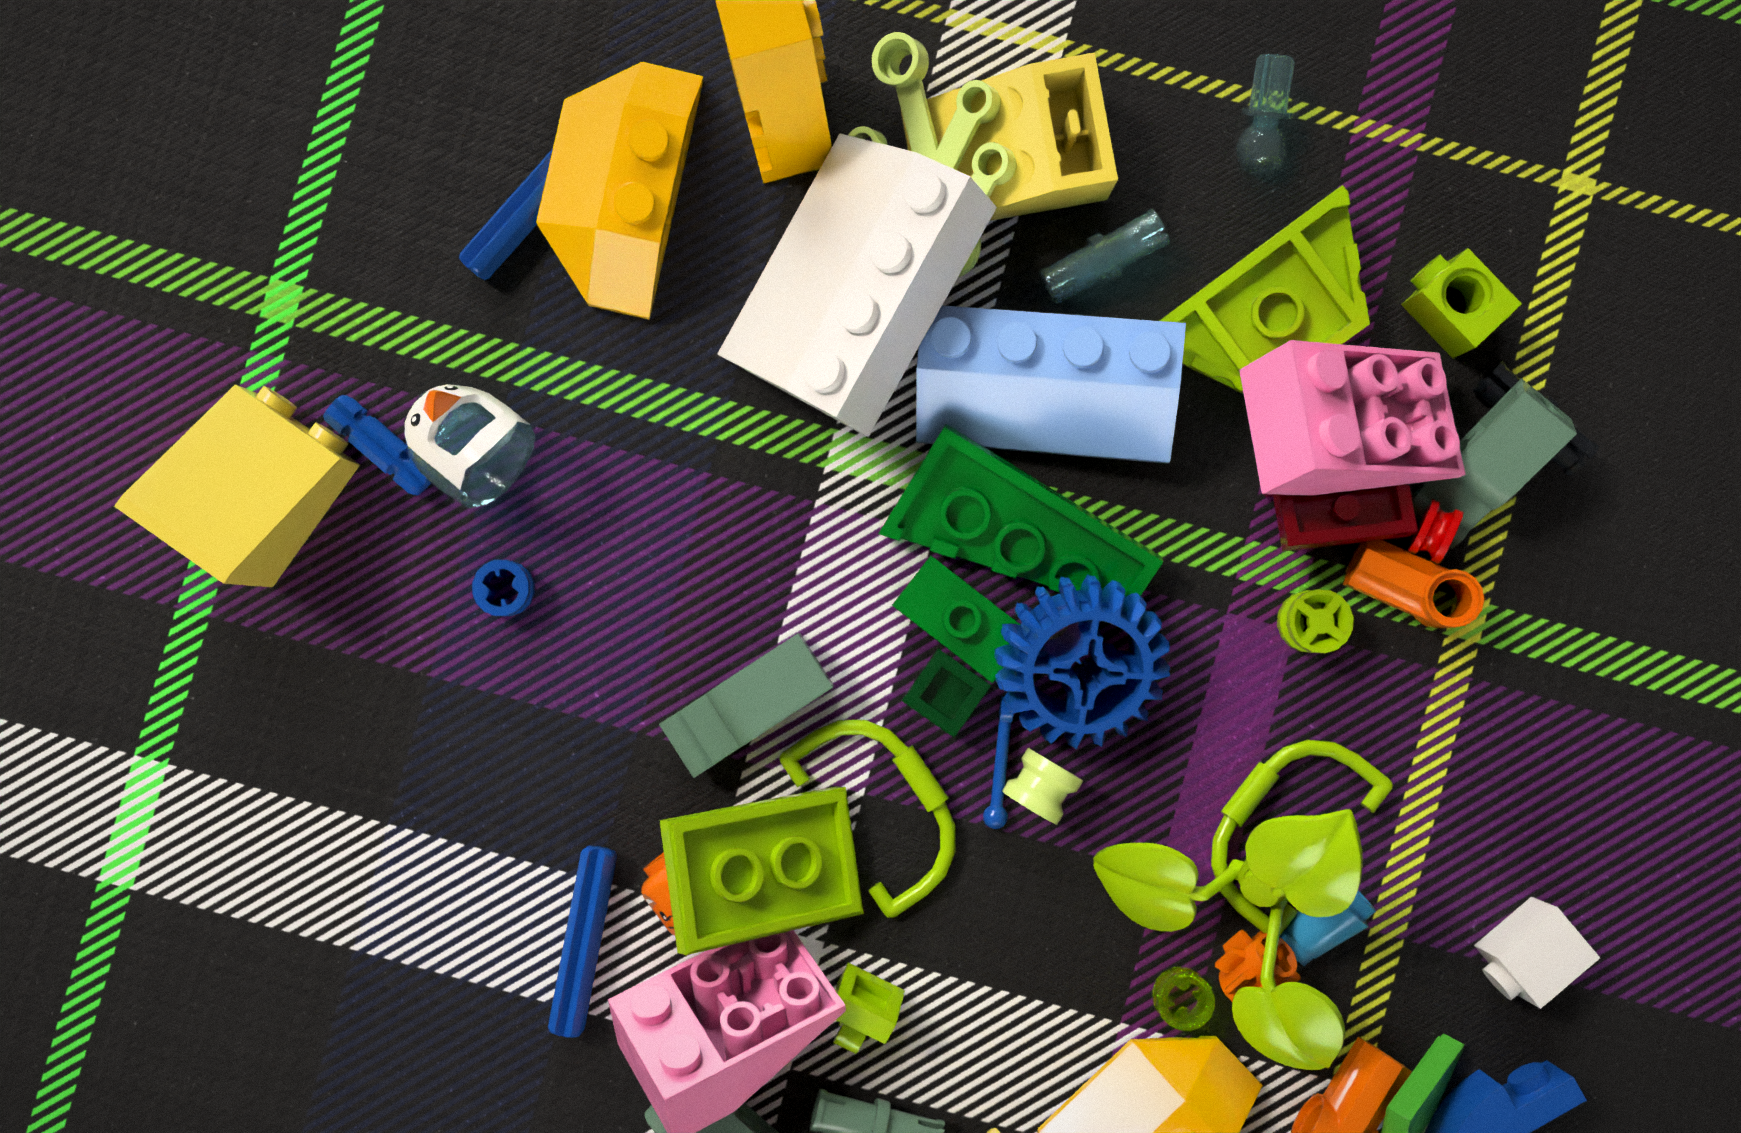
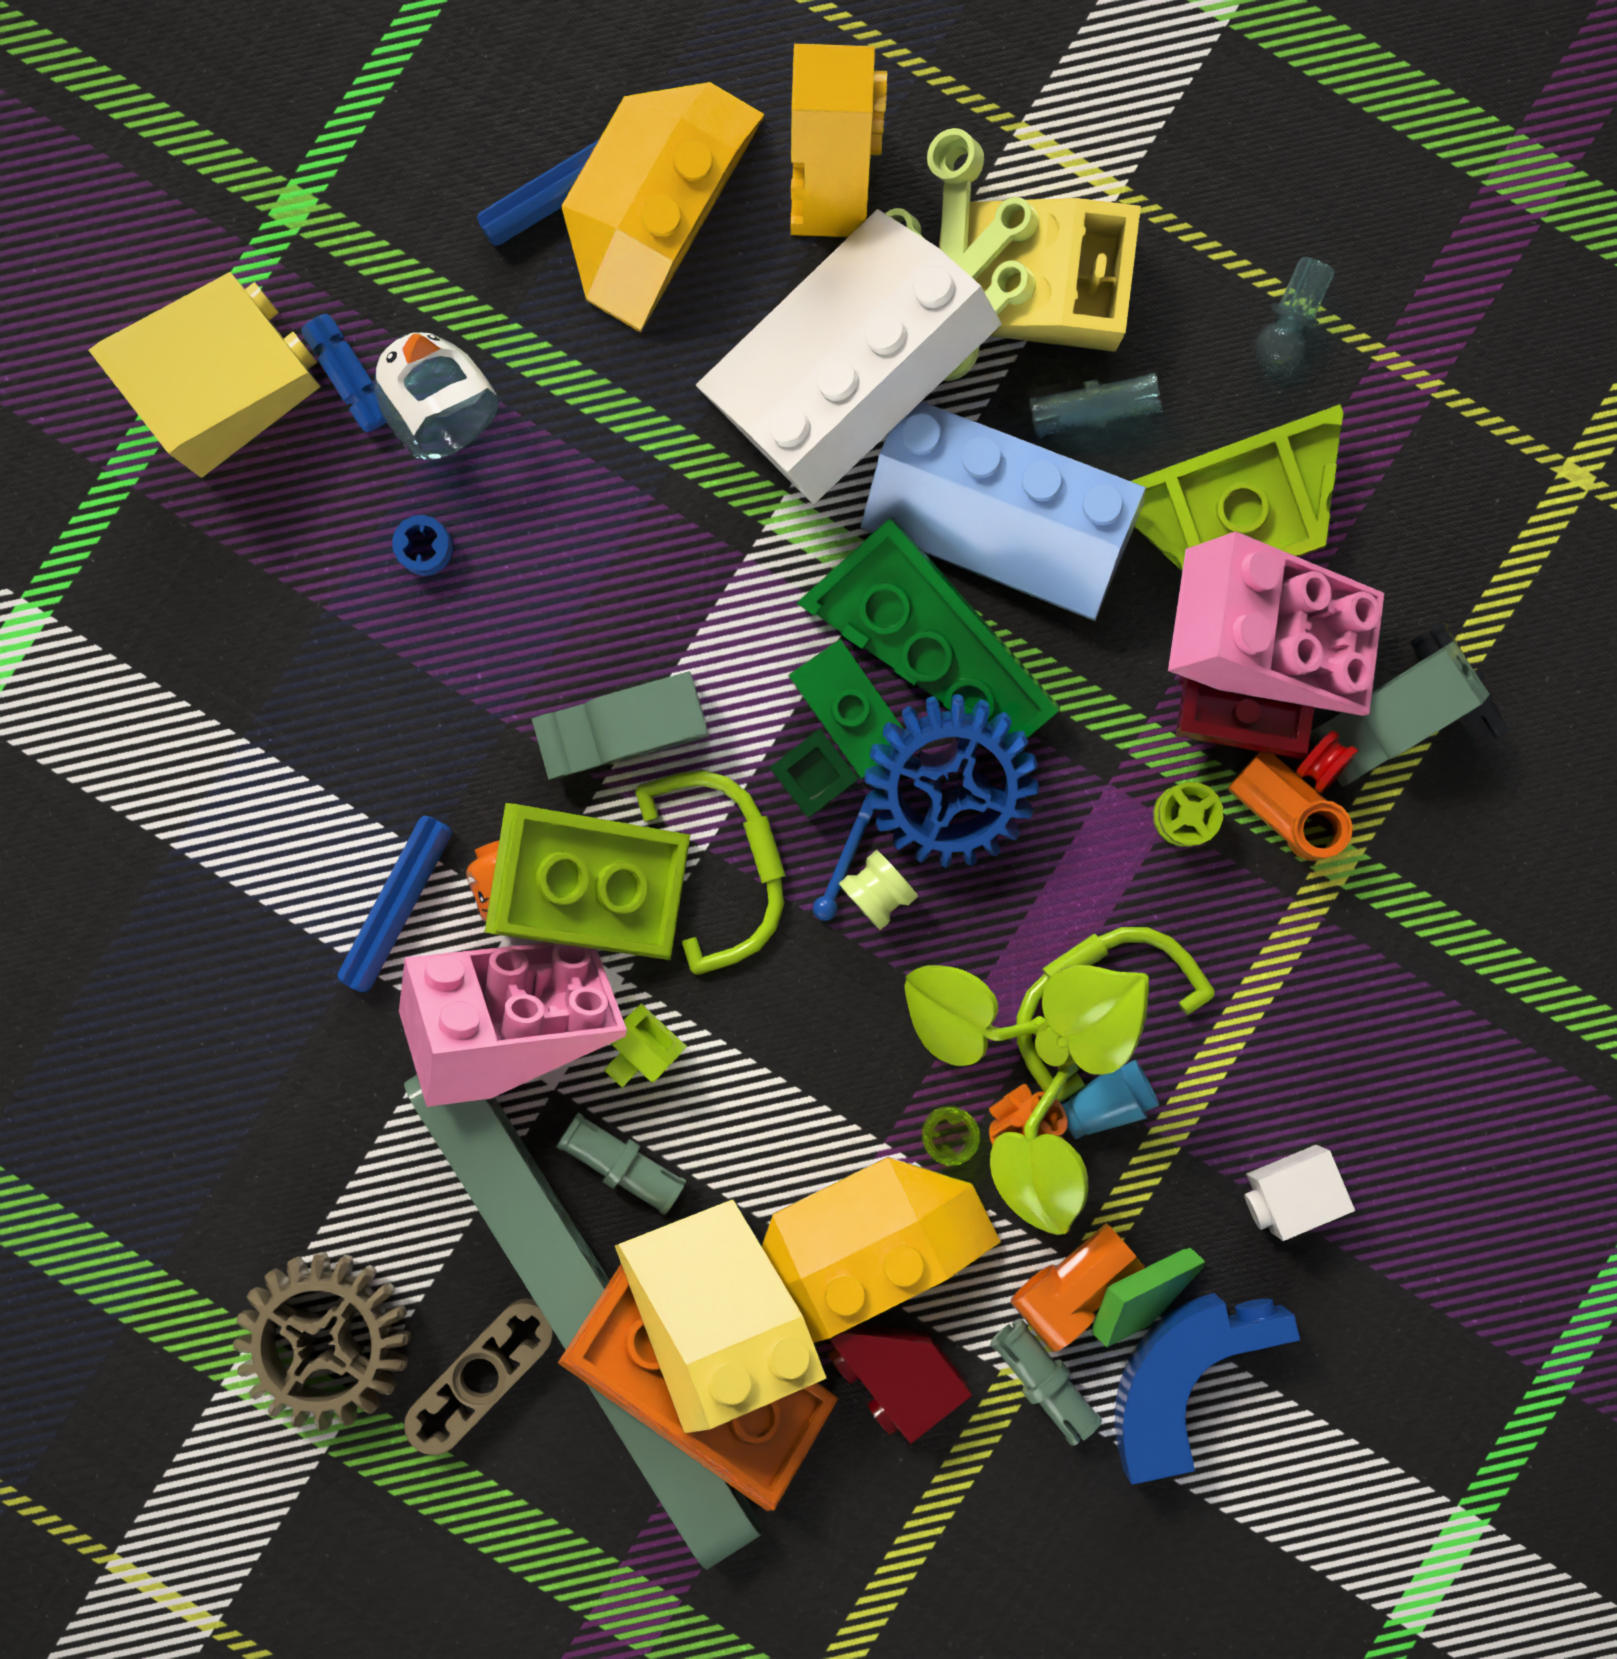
camera: 15 degrees right, 0 degrees up
(1485, 298) = (1448, 555): lime brick -> none

